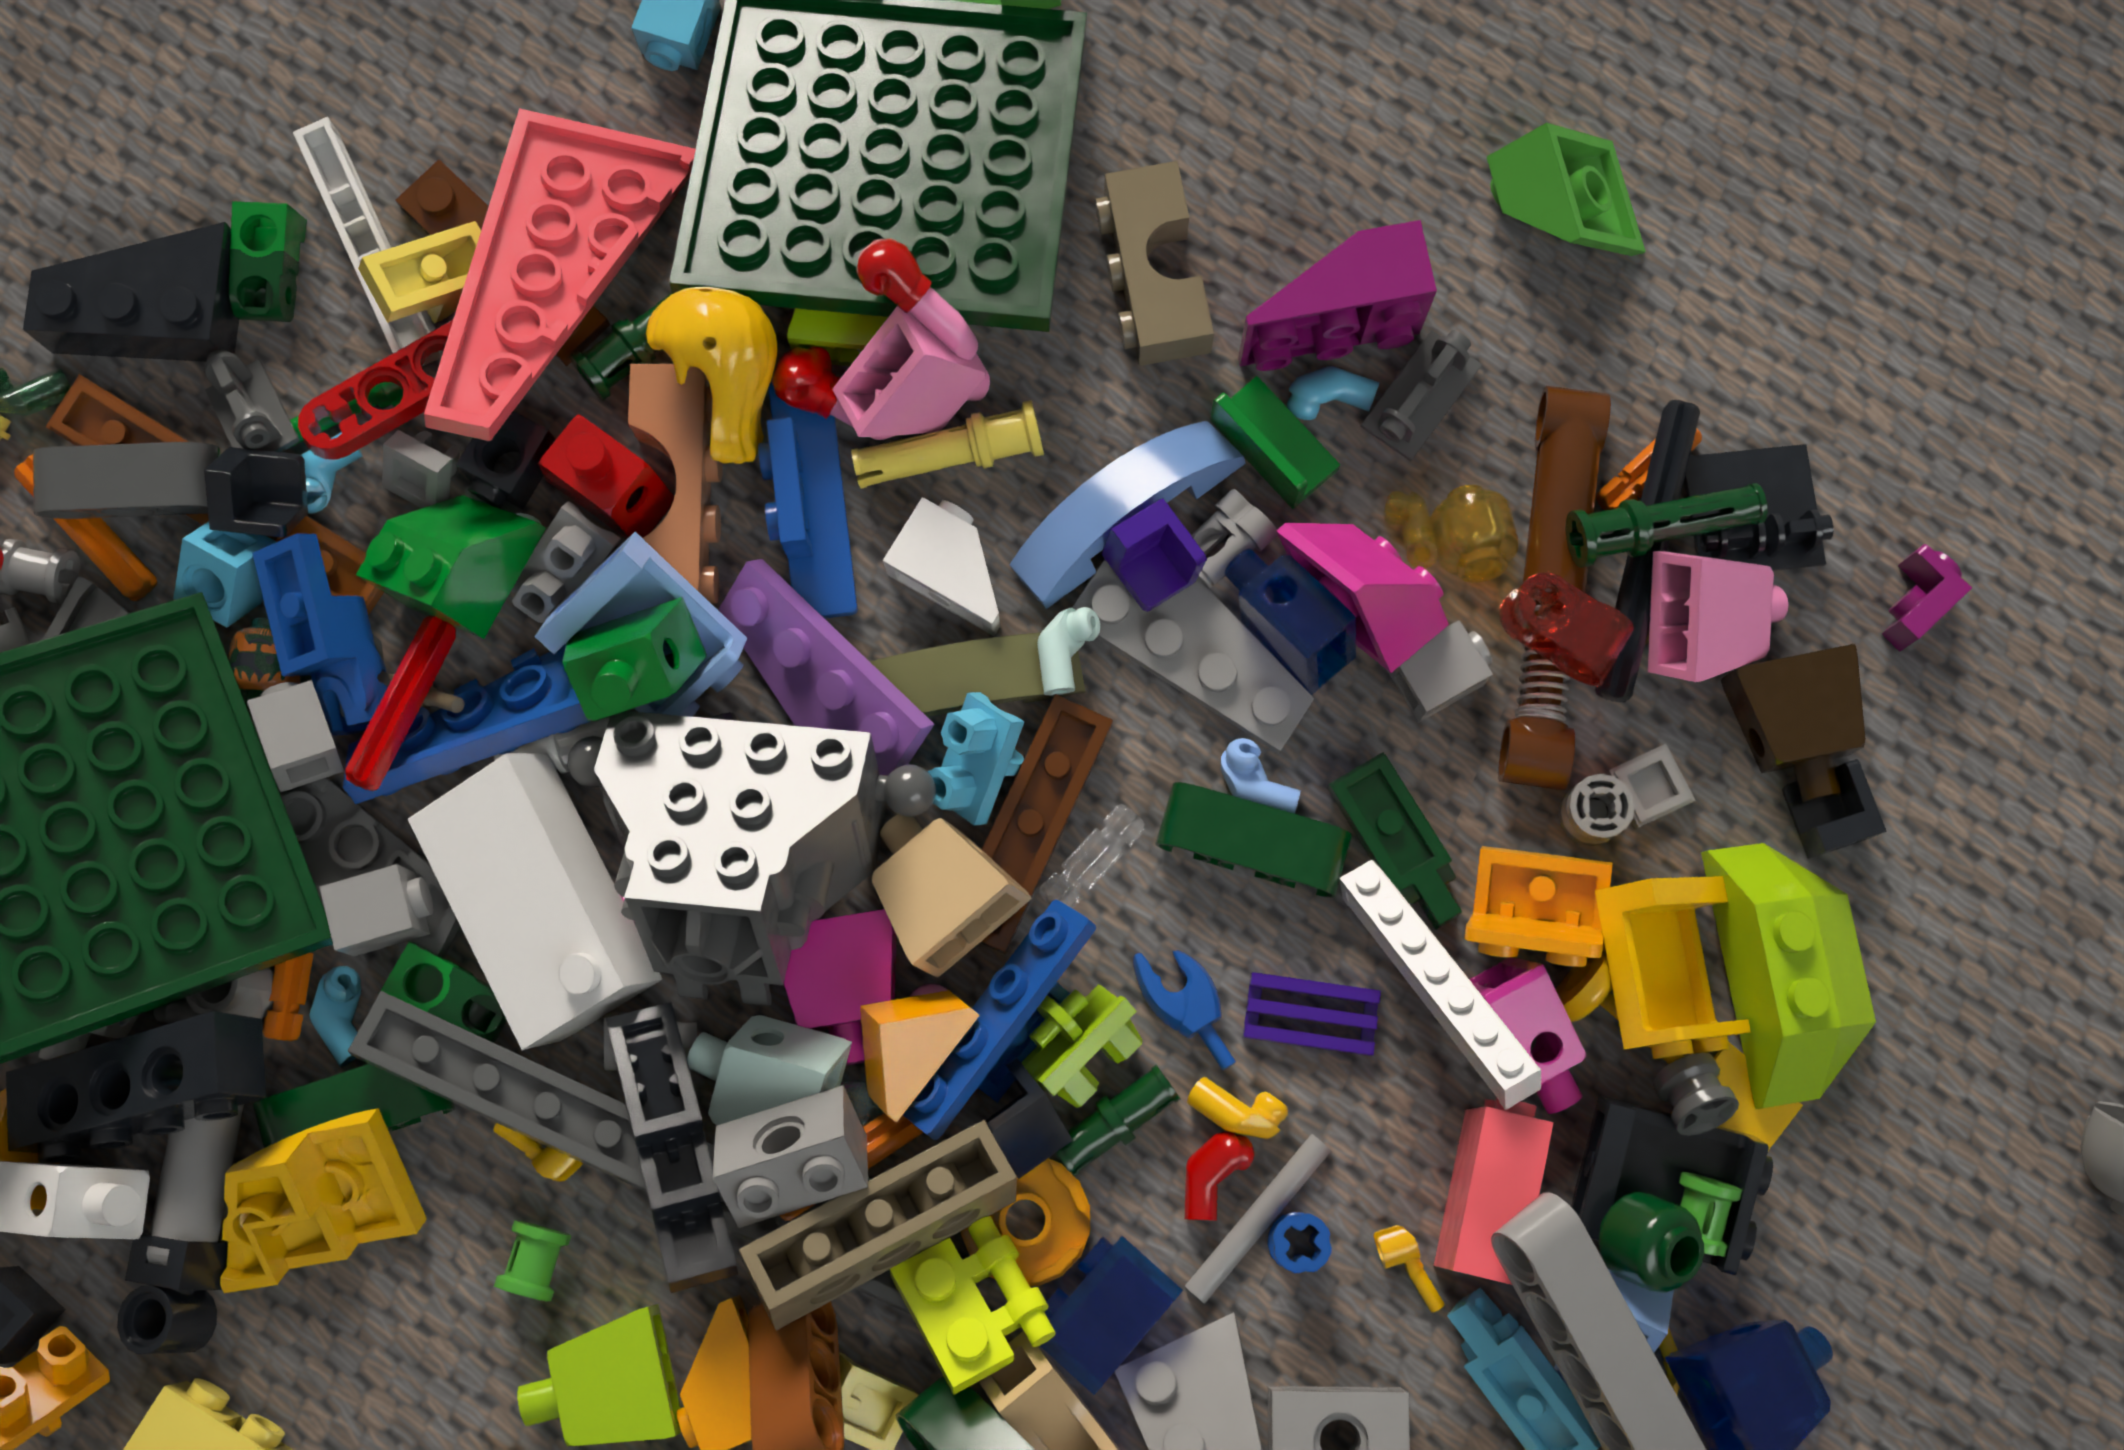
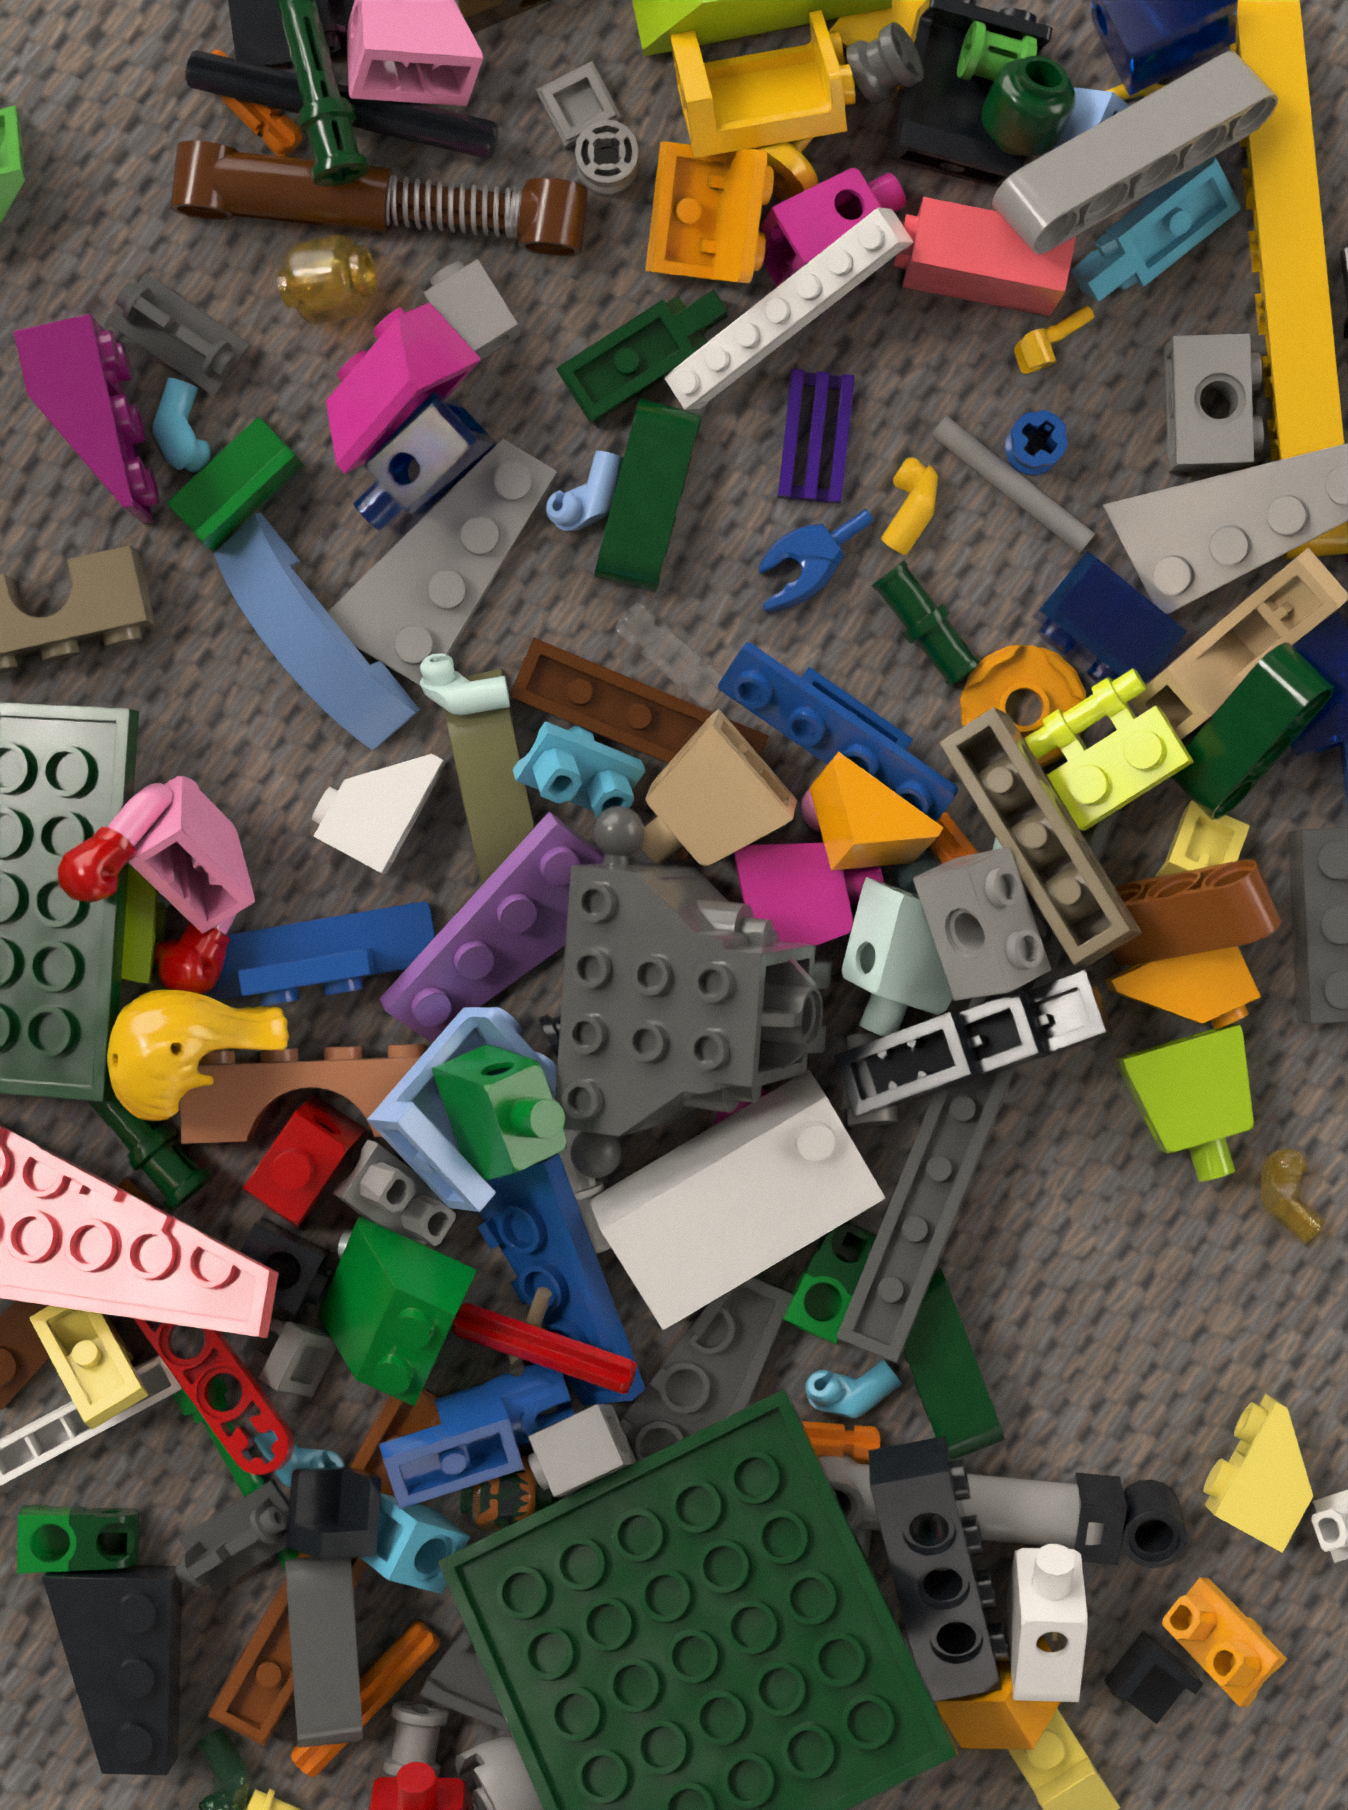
camera: 95 degrees left, 10 degrees up
(315, 1200) = (1034, 1389): yellow slope -> none
(377, 909) = (753, 1351): light grey brick -> none
(532, 1261) = (1081, 1178): bright green bush -> none
(546, 1161) = (987, 1172): yellow hand -> none
(978, 441) = (246, 786): light yellow pin -> none
(1028, 1126) = (934, 706): black panel -> none
(1074, 1035) = (851, 663): lime hips -> none
(1154, 555) = (367, 599): dark purple panel -> none
(1209, 1167) = (966, 530): red arm -> none
(1244, 526) = (318, 523): light grey piece -> none
(1417, 529) = (323, 338): clear yellow arm -> none
(1574, 629) = (435, 175): clear red piece -> none

